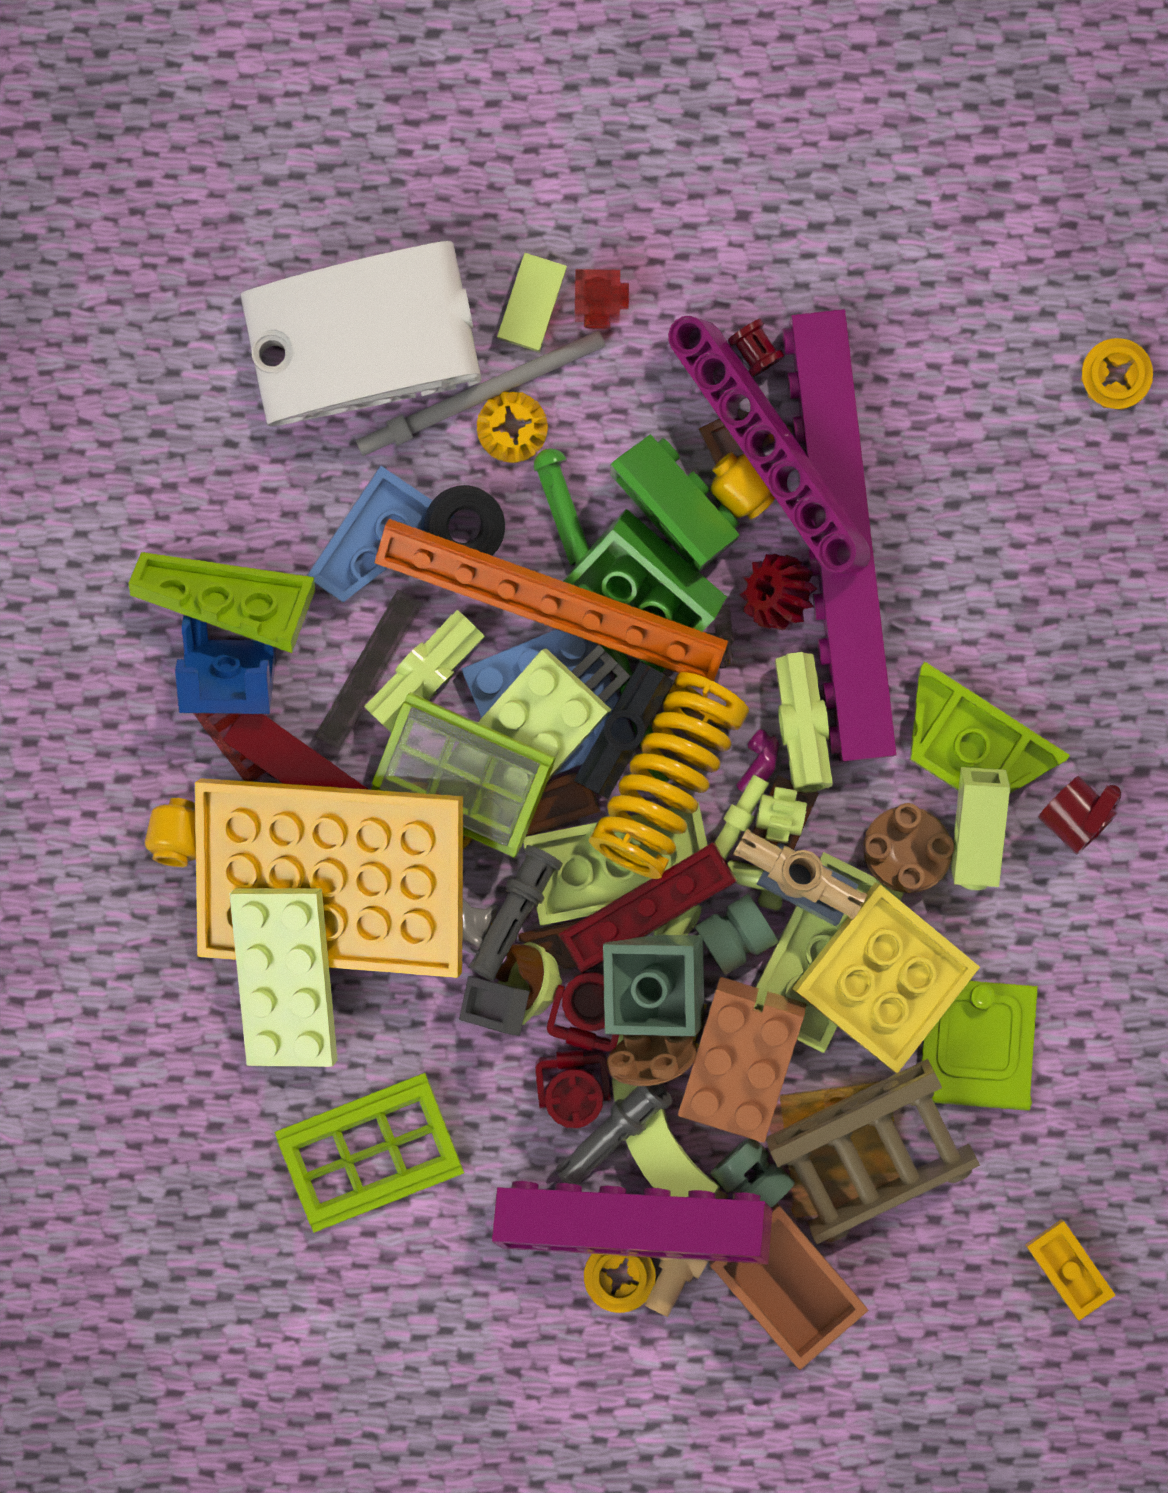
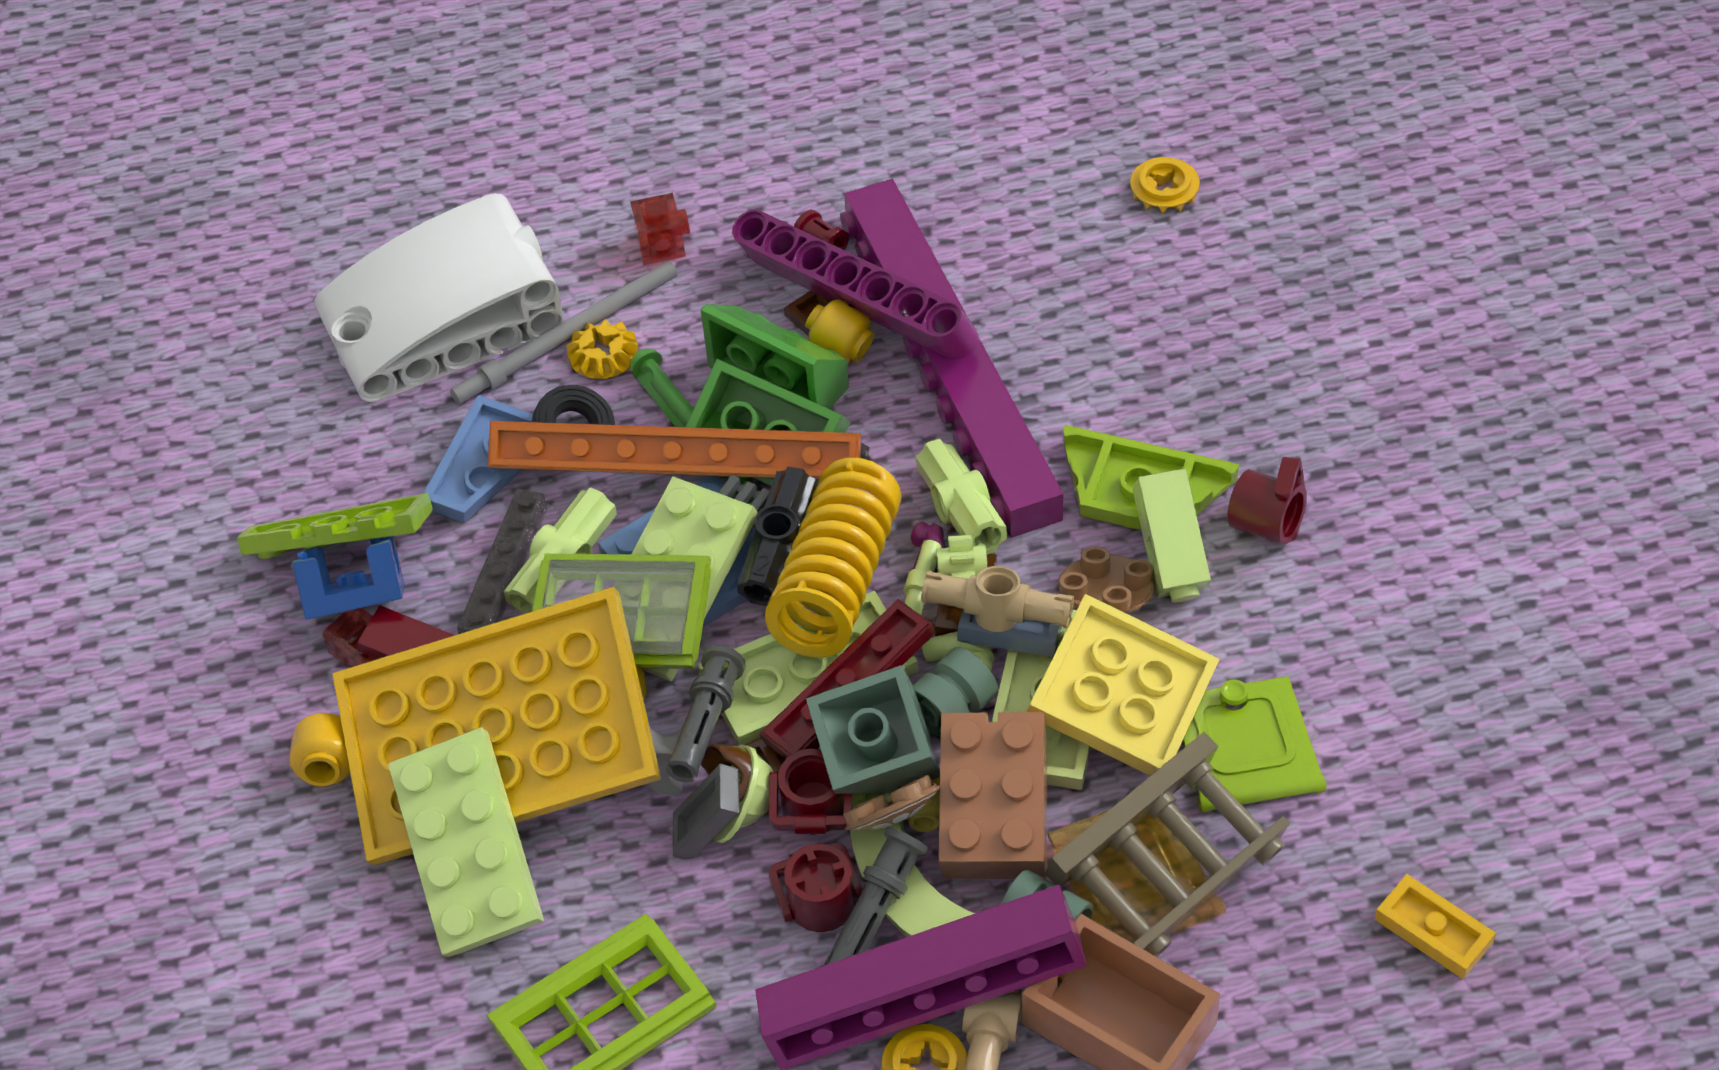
camera: 10 degrees left, 35 degrees down
(532, 302) = (598, 257): yellowish green tile -> none
(563, 802) = (732, 629): reddish brown tile -> none
(778, 591) = (899, 399): dark red gear -> none

